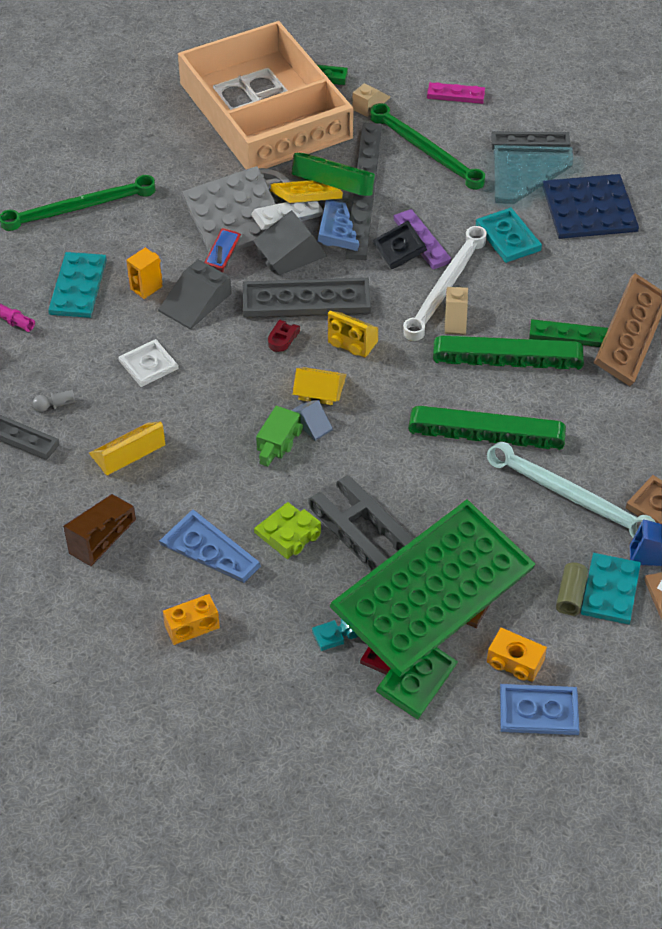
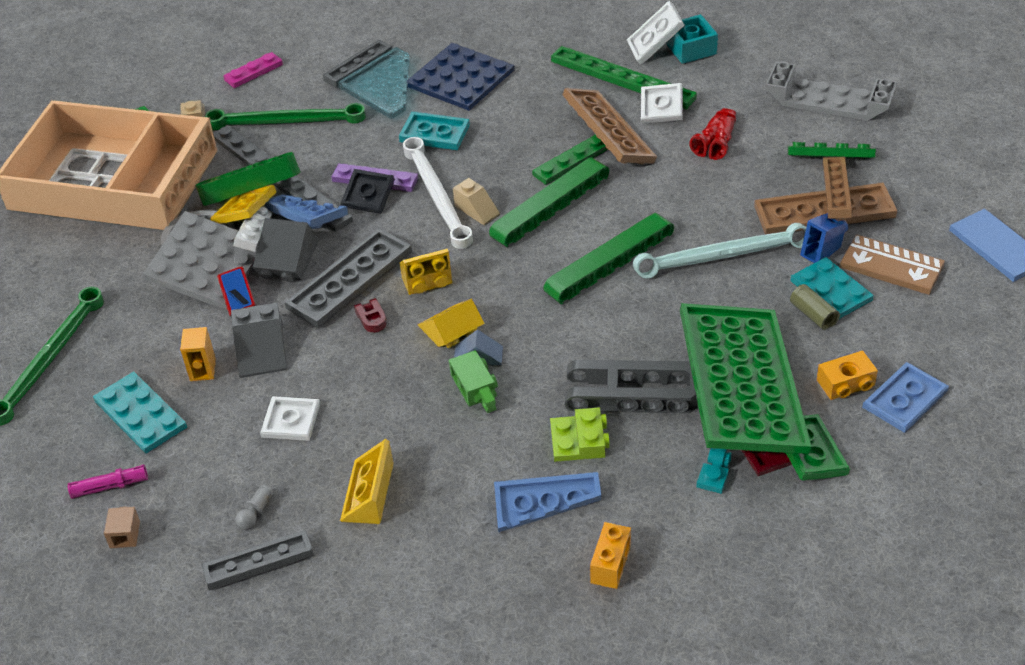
camera: 45 degrees left, 5 degrees down
(98, 528) = (442, 561): reddish brown wedge -> none

